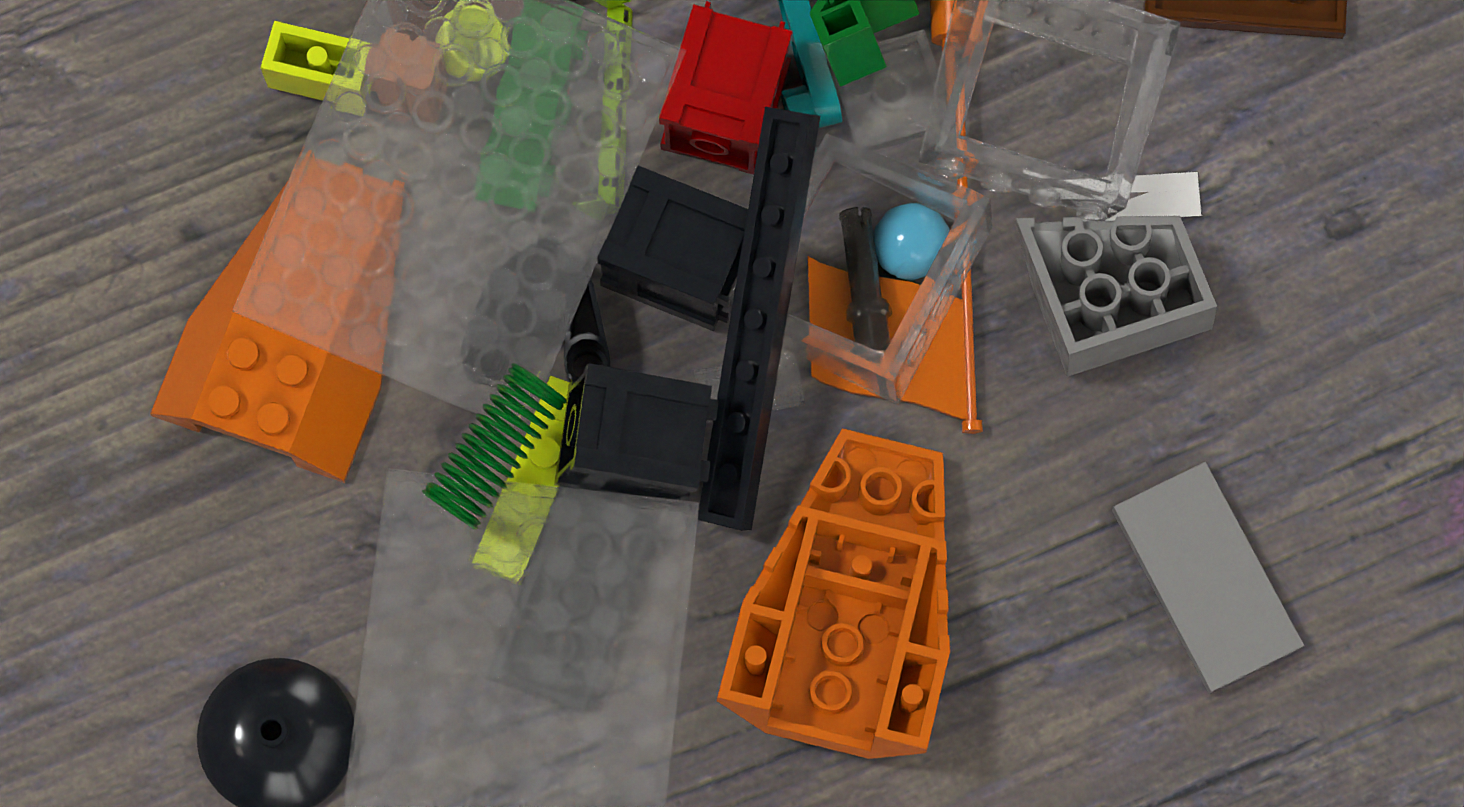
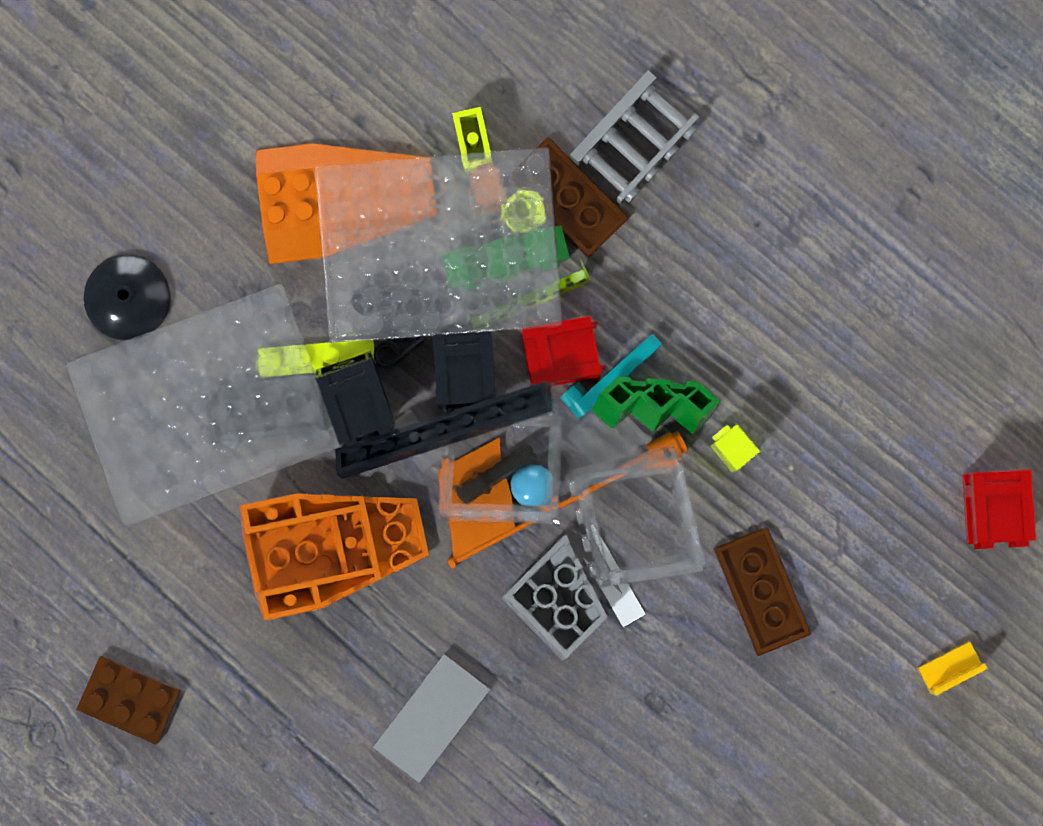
camera: 65 degrees right, 10 degrees up
(528, 382) = (275, 316): green piece -> none

